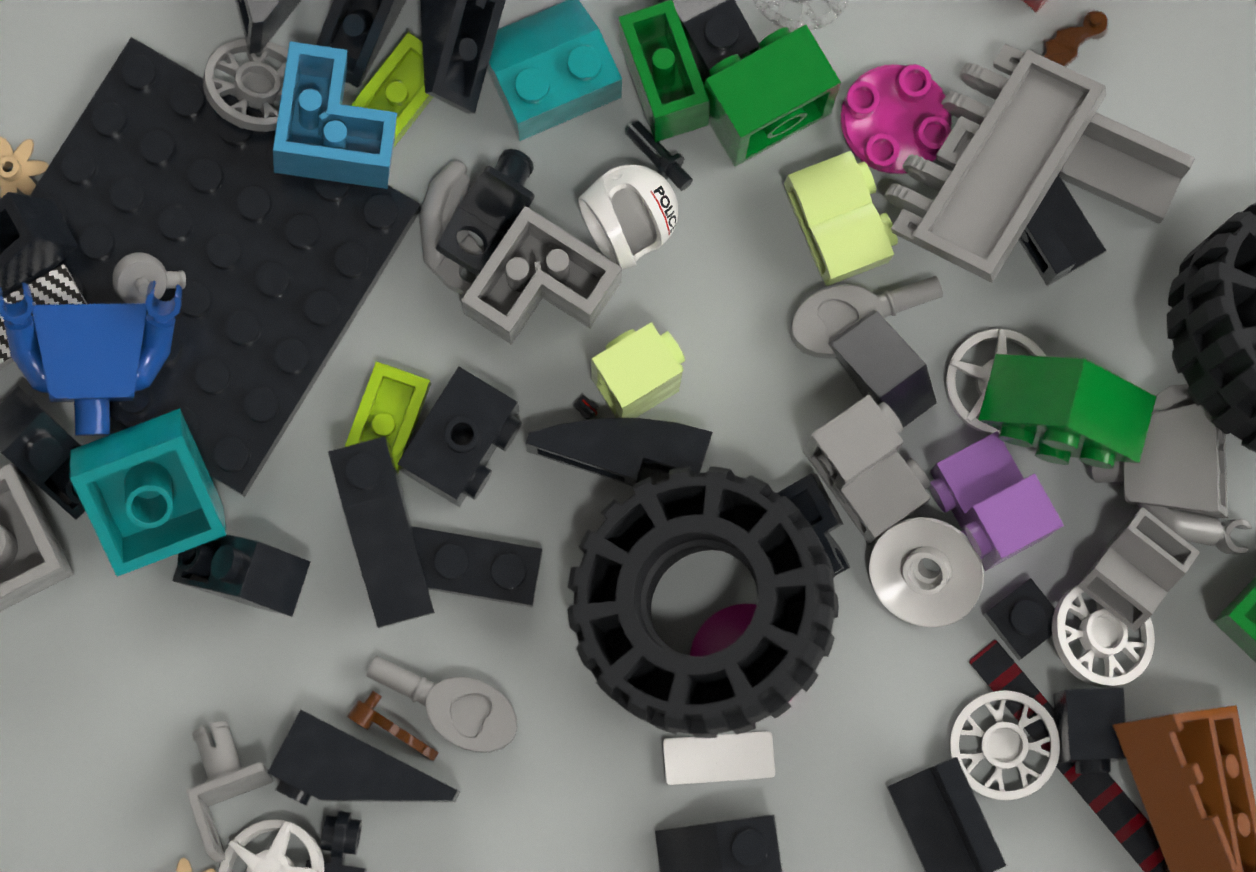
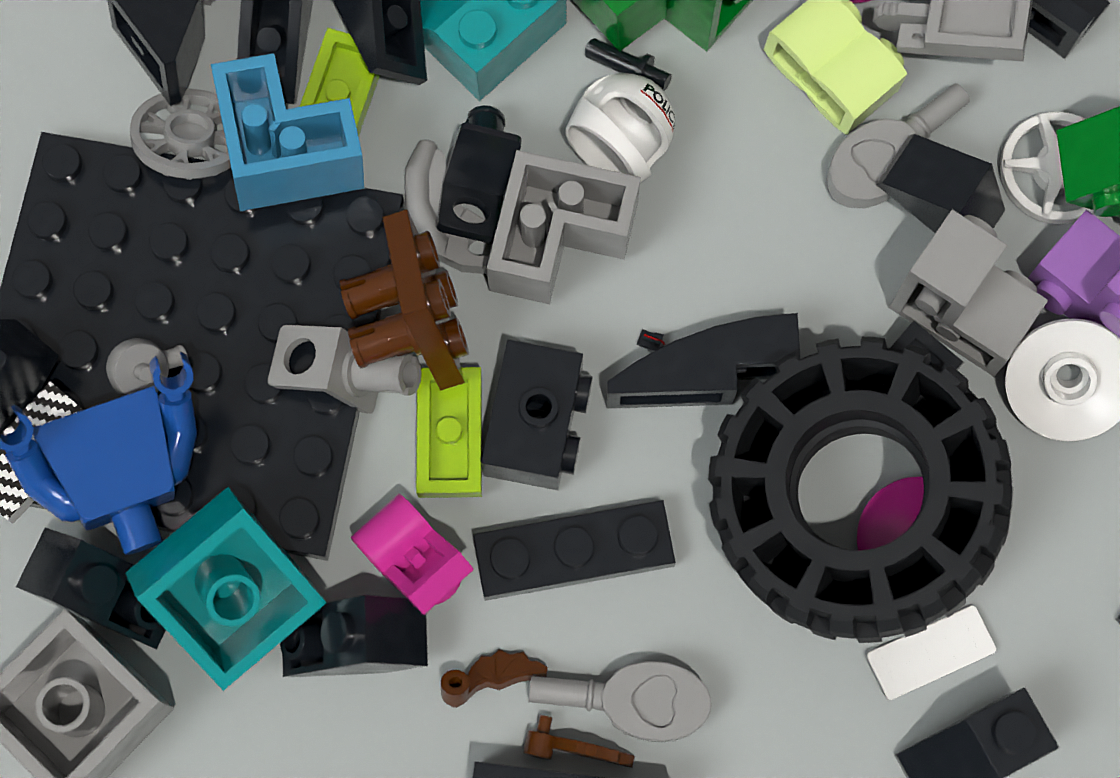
camera: 15 degrees left, 5 degrees down
(311, 520) = (412, 554): none -> dark pink plate
(313, 339) = (337, 370): none -> light grey bracket
(346, 640) = (493, 672): none -> reddish brown piece
(381, 531) = (491, 538): black slope -> none
(396, 311) = (424, 304): none -> reddish brown plate
(638, 371) = (696, 277): yellowish green brick -> none

